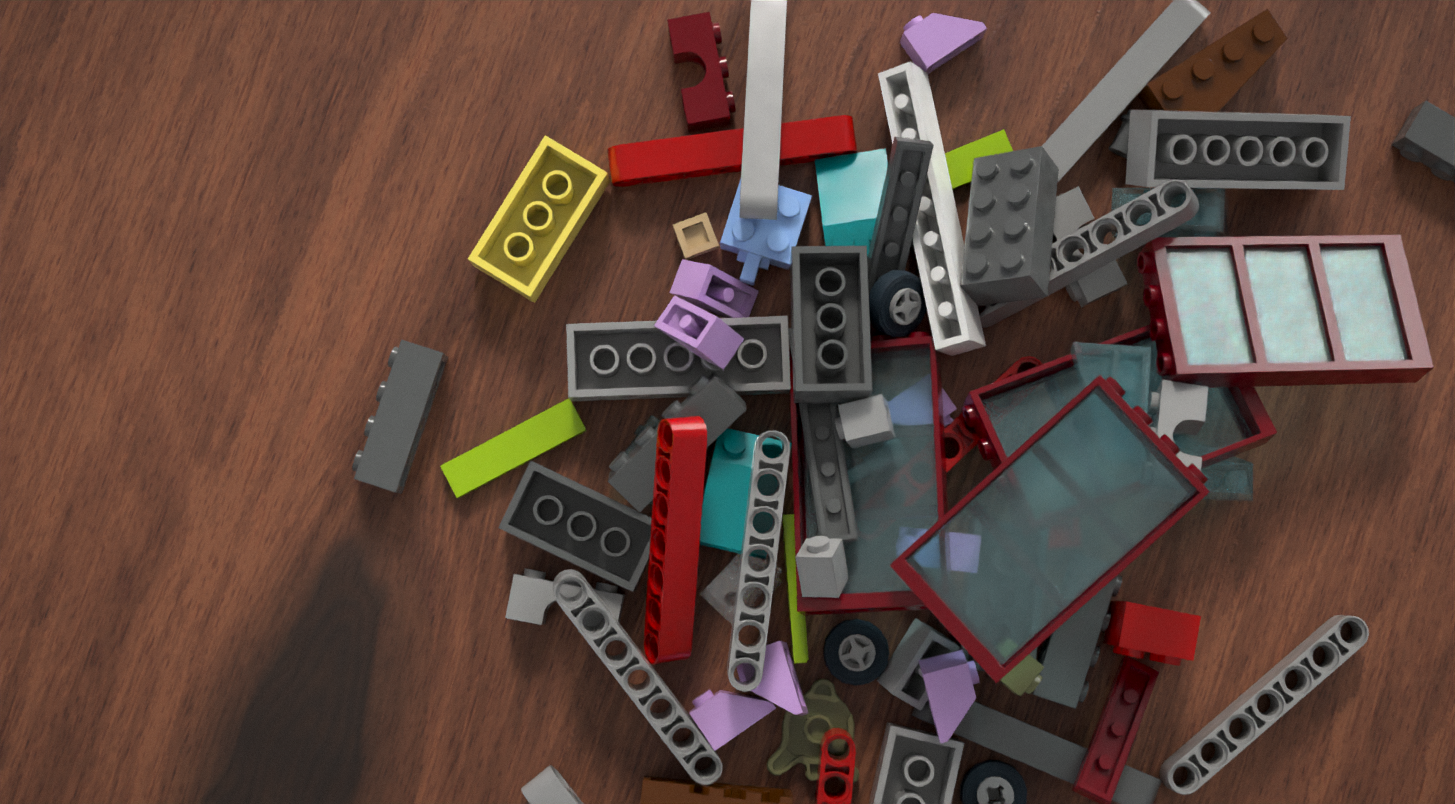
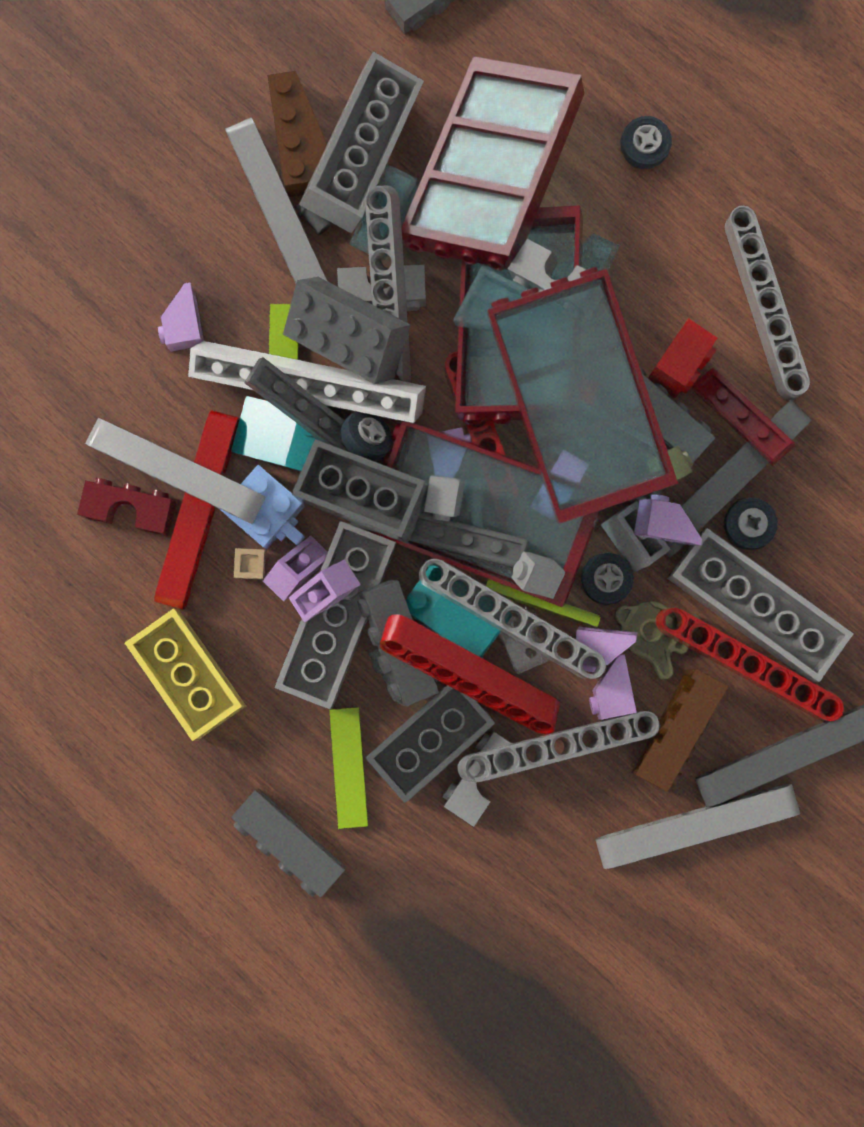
camera: 65 degrees left, 0 degrees up
(1406, 480) = (649, 132): none -> black wheel

